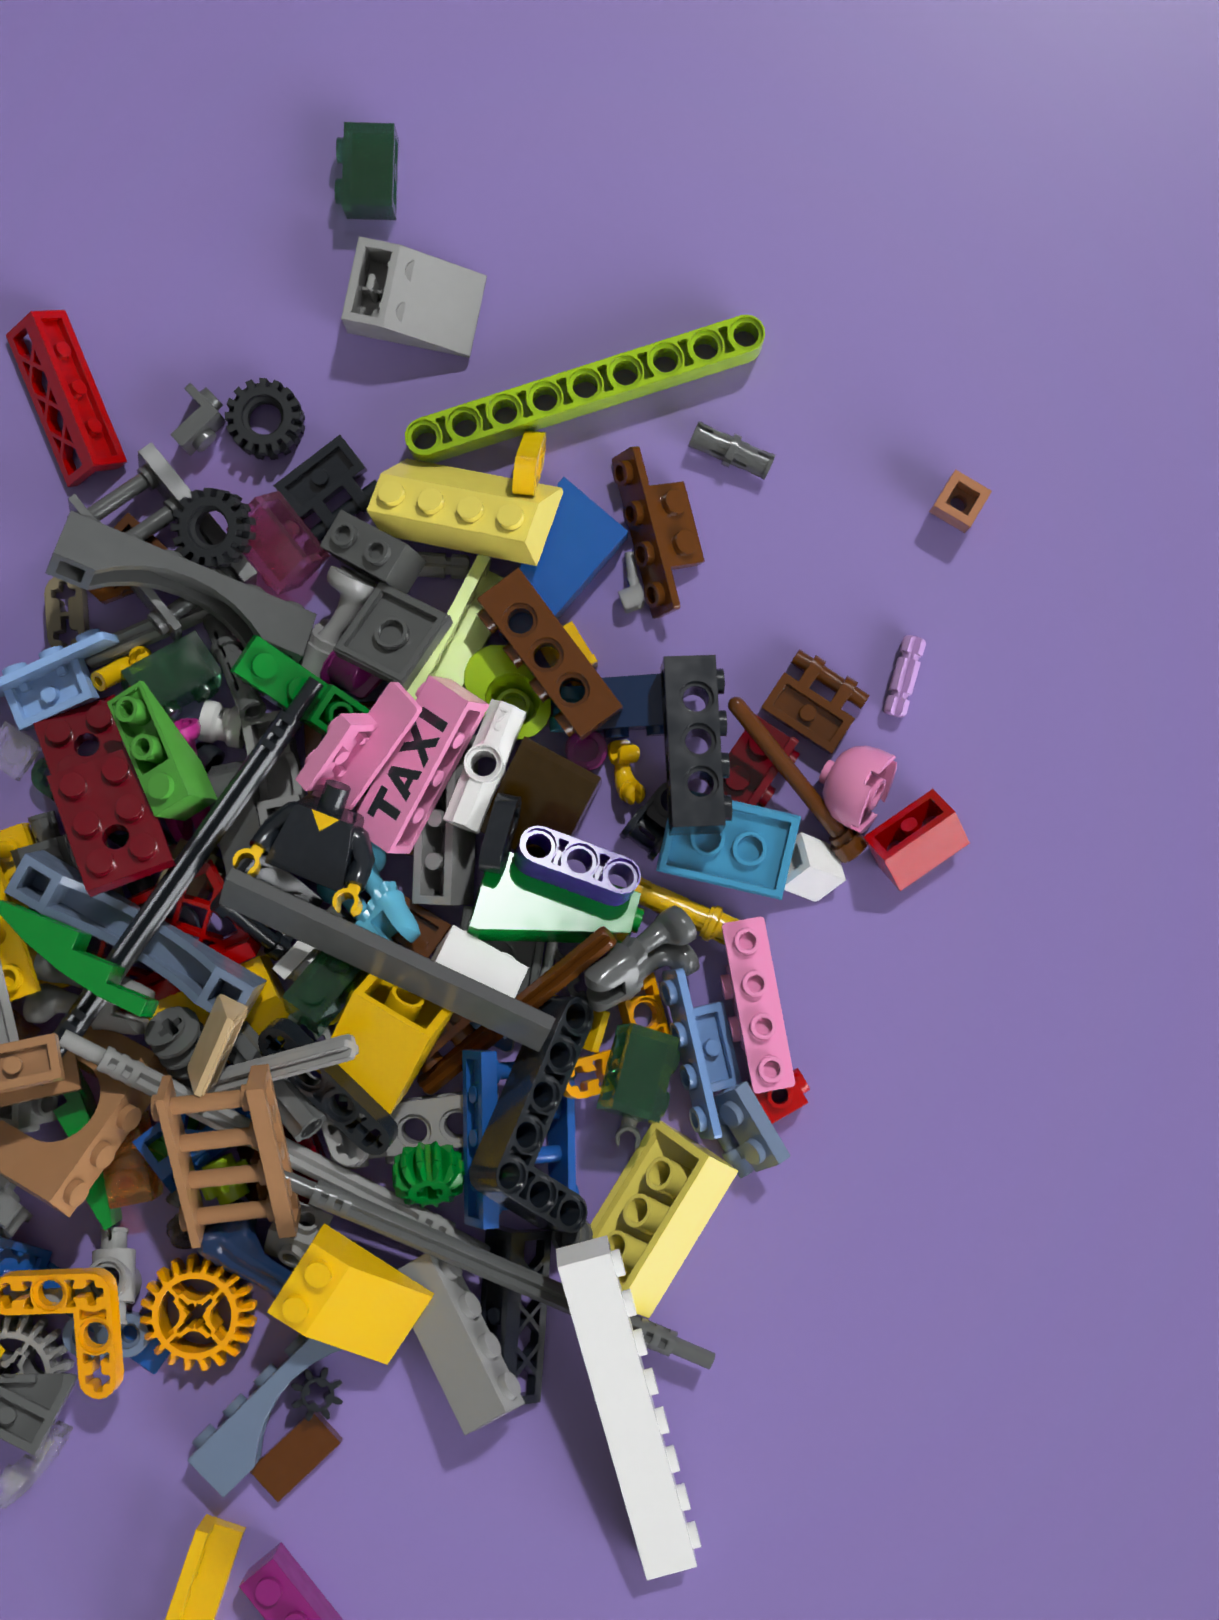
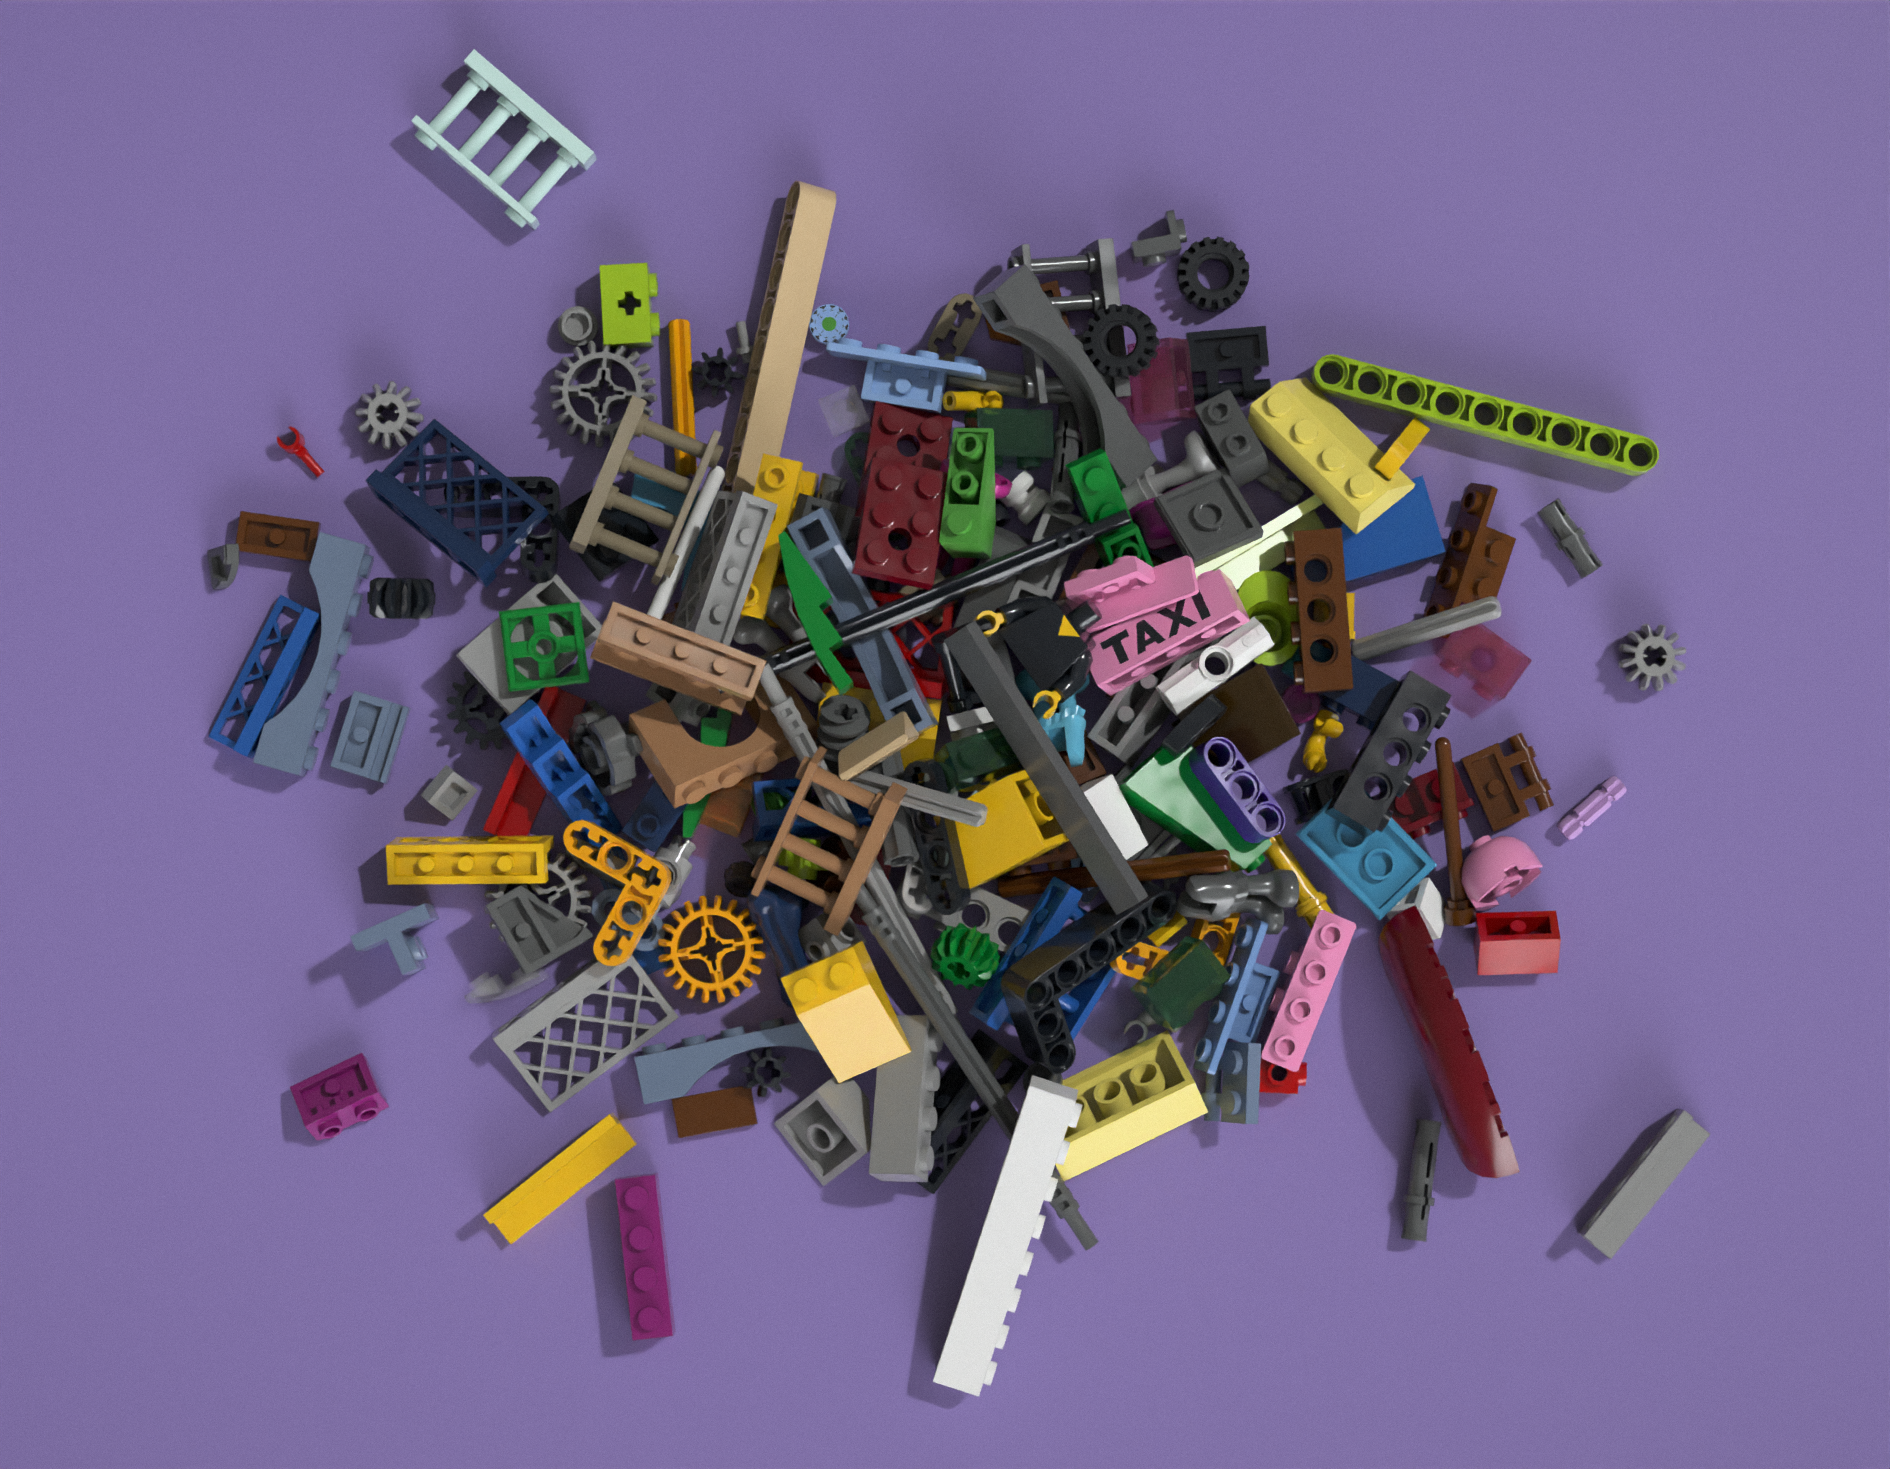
camera: 30 degrees right, 0 degrees up
(65, 1237) = (653, 819): none -> dark blue bracket
(68, 390) = (1071, 152): red fence -> none
(90, 1454) = (557, 1003): none -> light grey fence
(369, 171) = (1423, 128): clear green brick -> none
(407, 1404) = (829, 1128): none -> light grey slope
(412, 298) = (1393, 255): light grey slope -> none
(633, 596) = (1416, 604): light grey hand -> none
(656, 609) = (1426, 628): none -> light grey axle
(744, 593) = (1505, 667): none -> clear pink brick
(860, 496) = (1652, 672): none -> light grey gear
(915, 975) = (1446, 1046): none -> dark red brick
(966, 489) = (1739, 697): nougat plate -> none
(974, 1121) = (1421, 1180): none -> dark grey pin
(1166, 980) = (1644, 1183): none -> light grey fence

